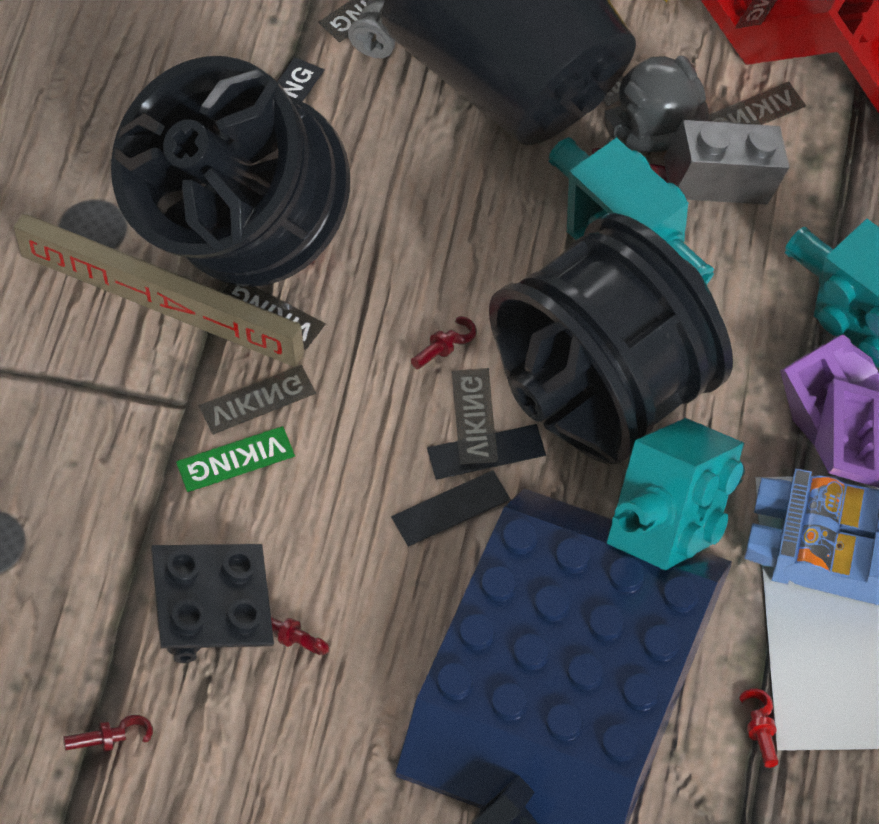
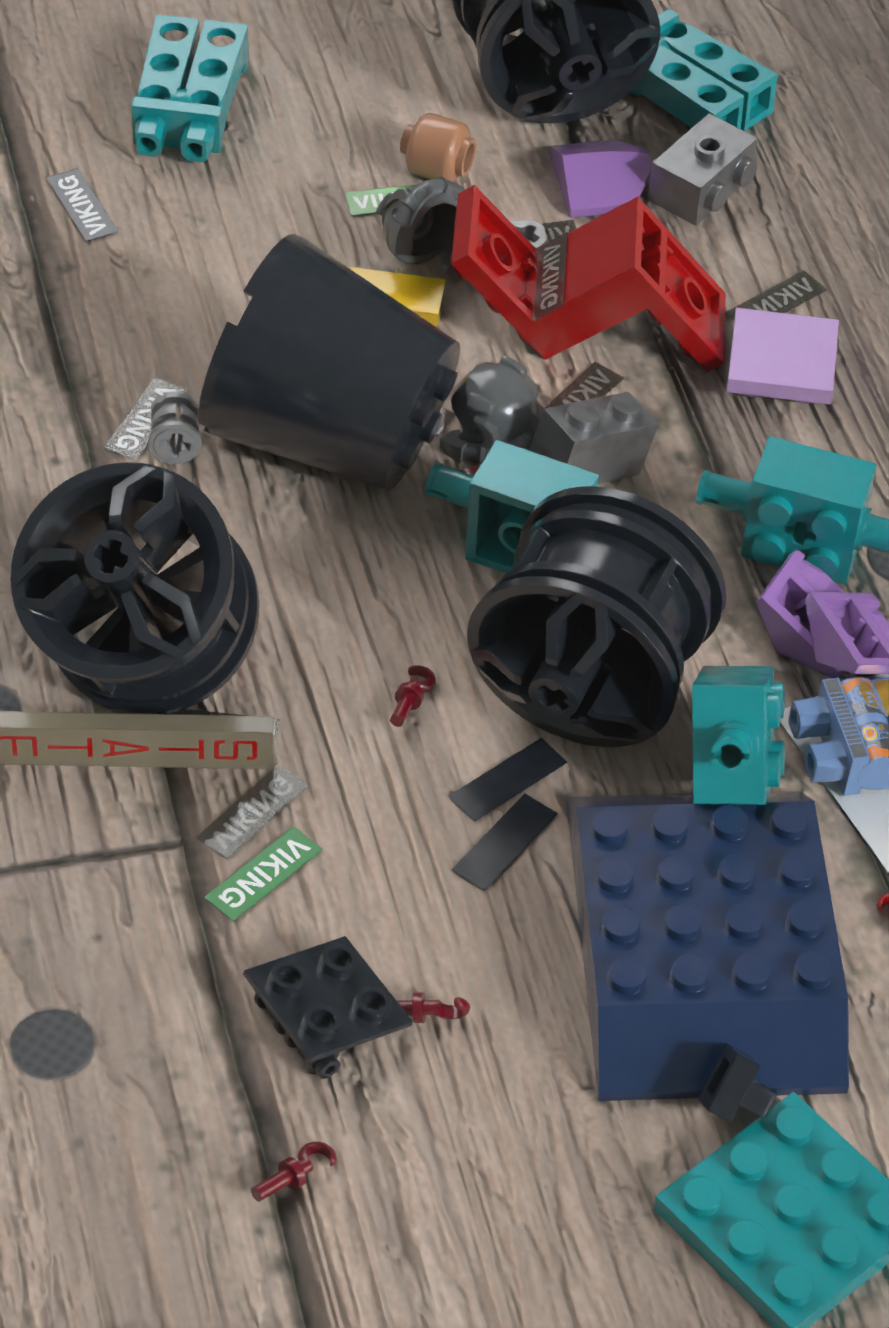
camera: 30 degrees left, 10 degrees down
(474, 416) = (478, 751): clear smoke sticker -> none

